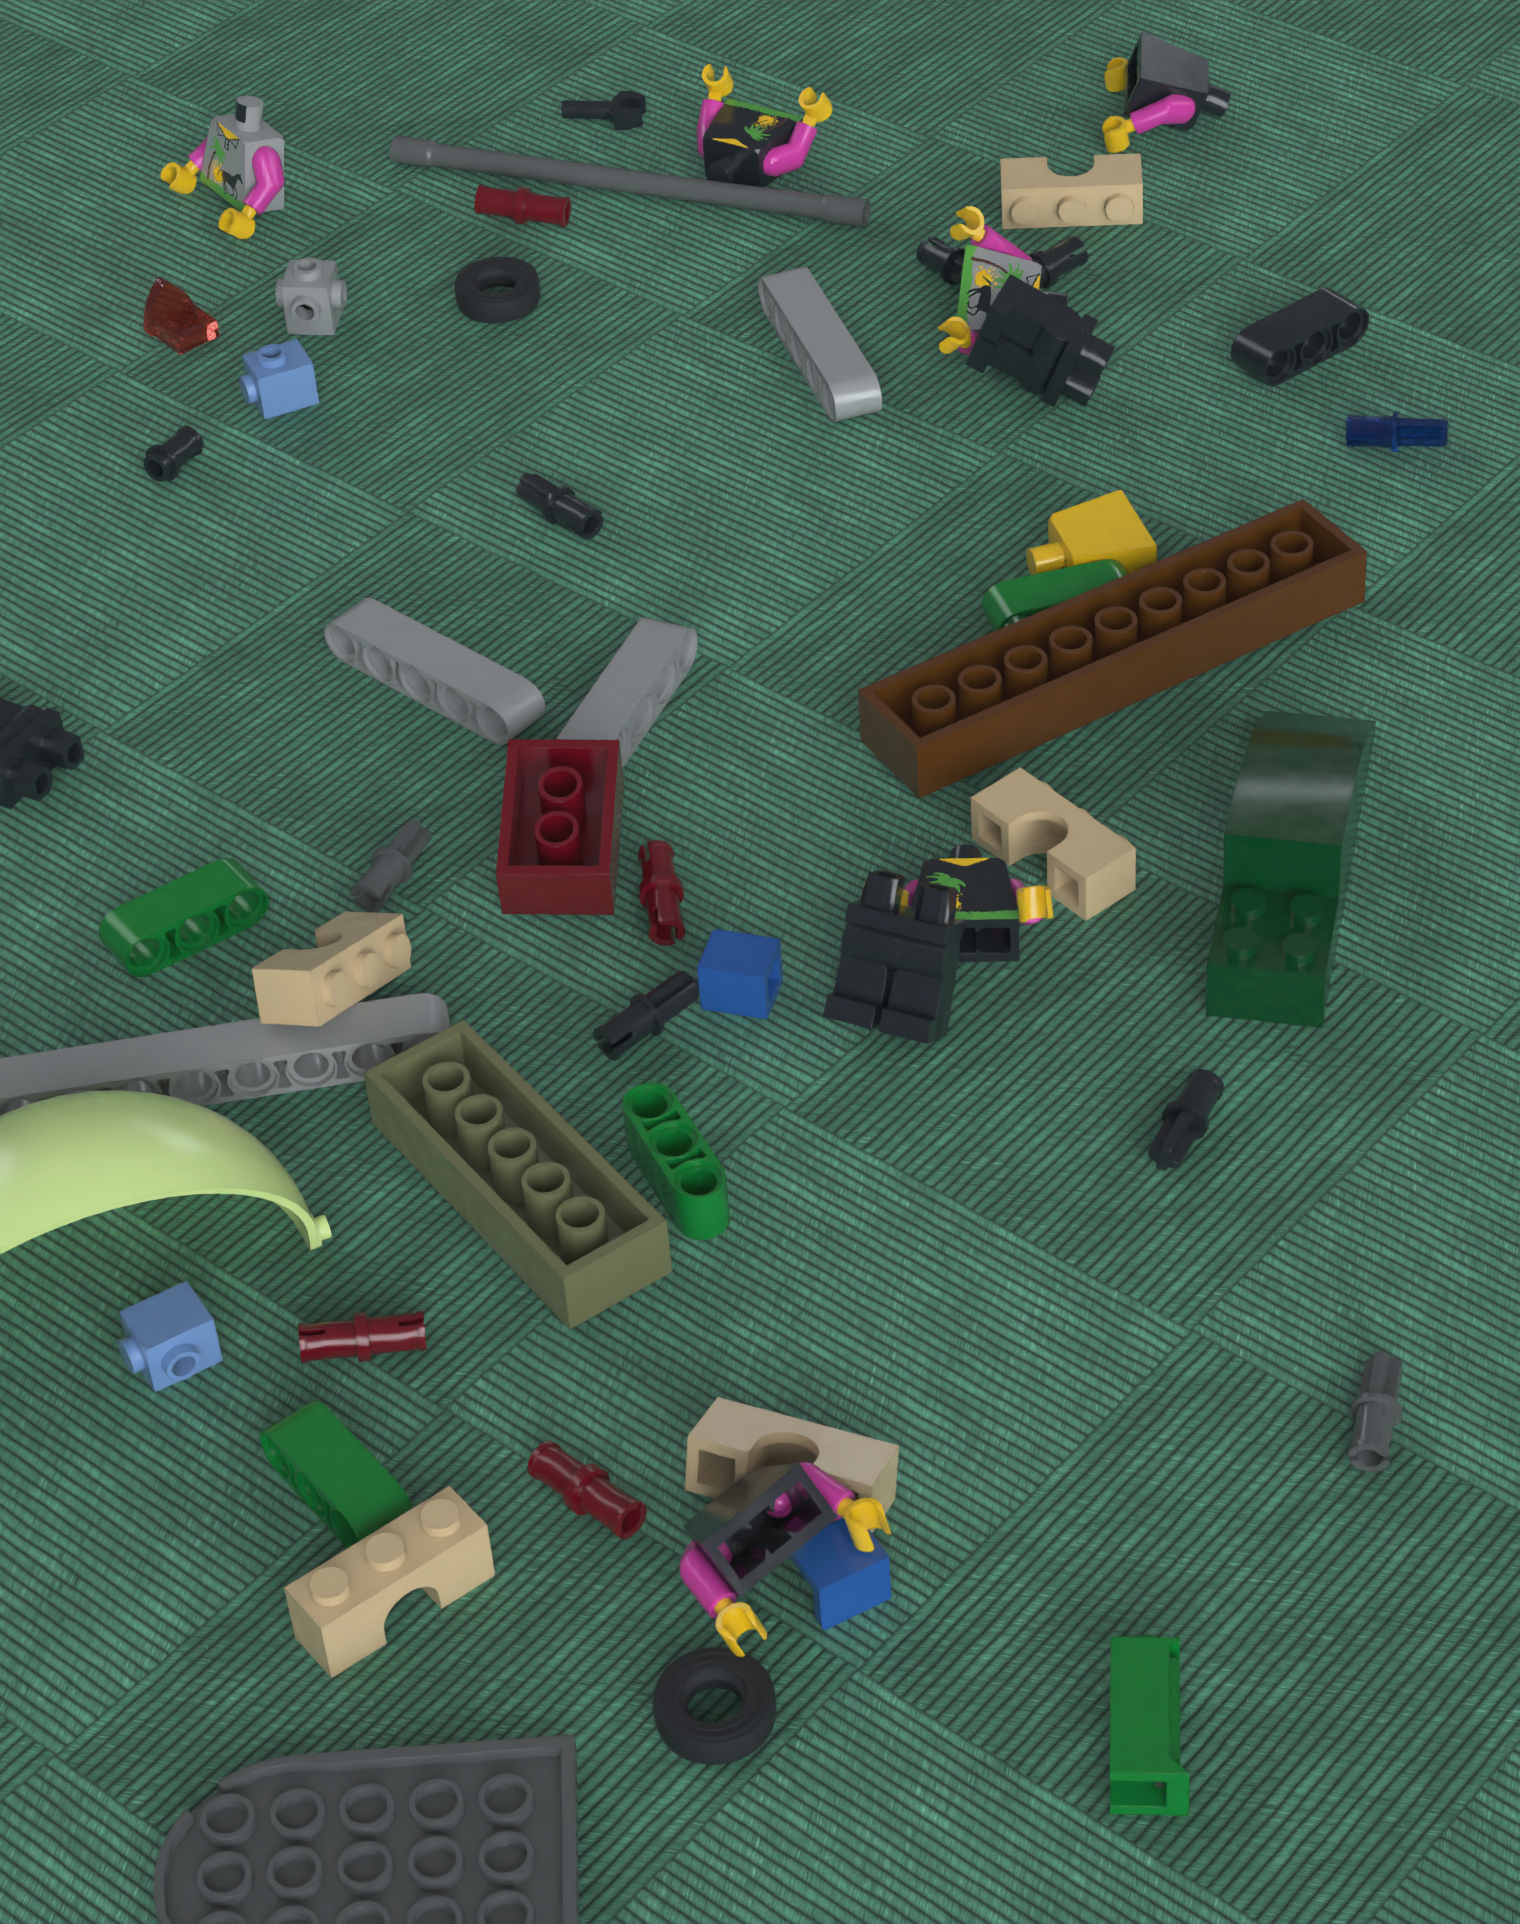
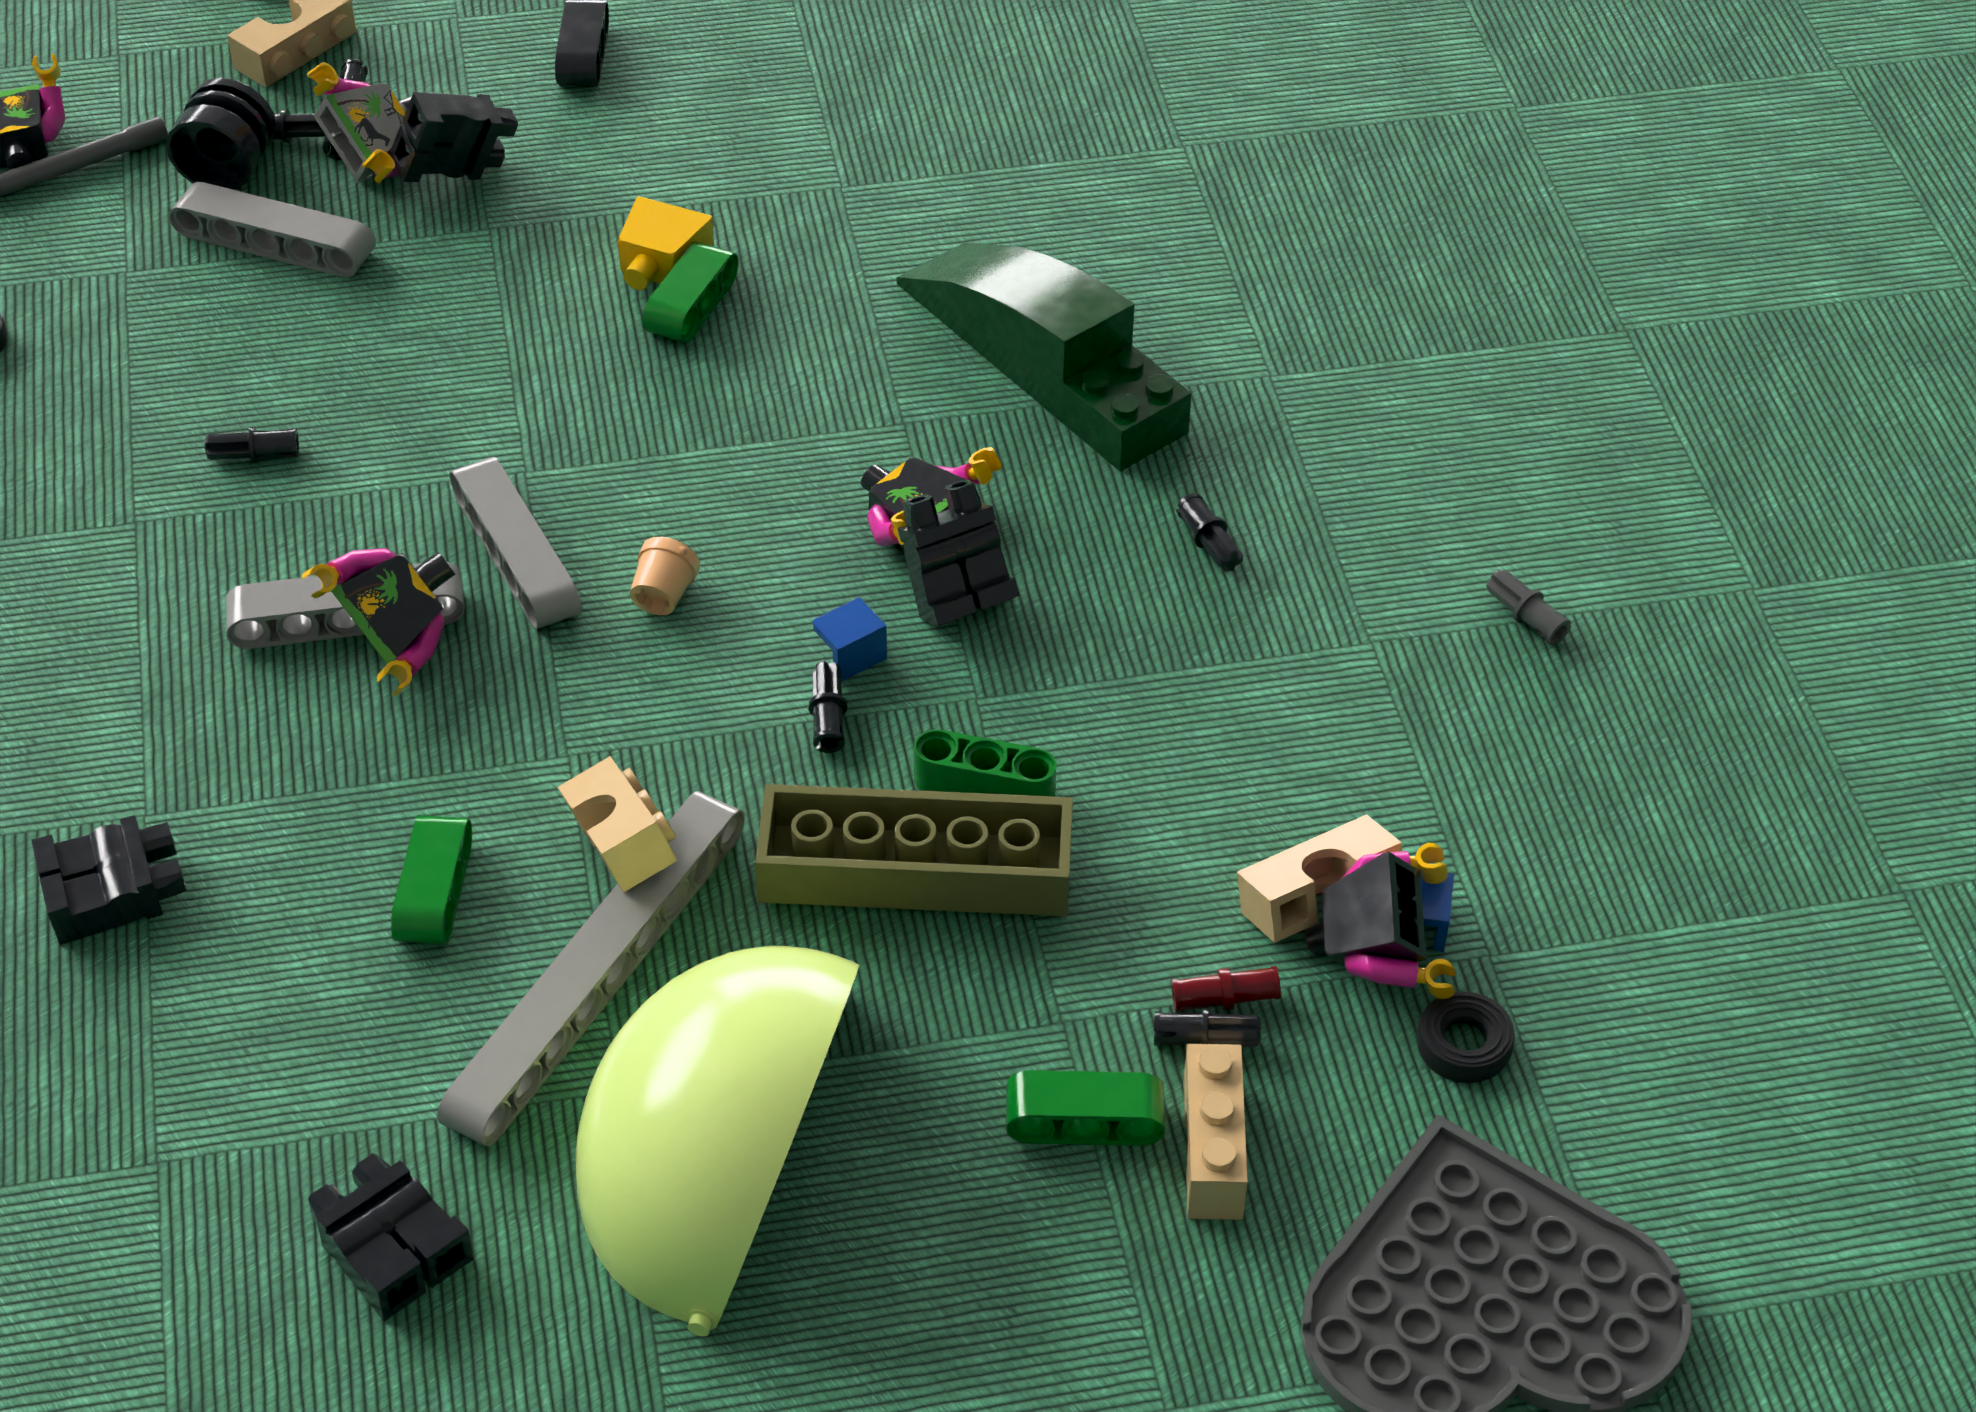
camera: 55 degrees left, 5 degrees up
(169, 1337) = (858, 1122): medium blue brick -> none
(362, 1336) = (965, 1022): dark red pin -> none
(390, 867) = (517, 744): dark grey axle -> none
(429, 683) = (390, 604): none -> torso
(519, 1504) = (1206, 1029): none -> black axle
(560, 827) = (618, 631): dark red brick -> none
(661, 892) = (719, 630): dark red pin -> none
(679, 813) = (663, 574): none -> light nougat piece
(873, 237) = (221, 134): none -> black wheel
(1085, 859) = (876, 425): tan arch -> none
(1110, 647) = (770, 300): reddish brown brick -> none
(1146, 1728) = (1675, 852): green window -> none
(1395, 431) = (725, 66): clear blue axle -> none

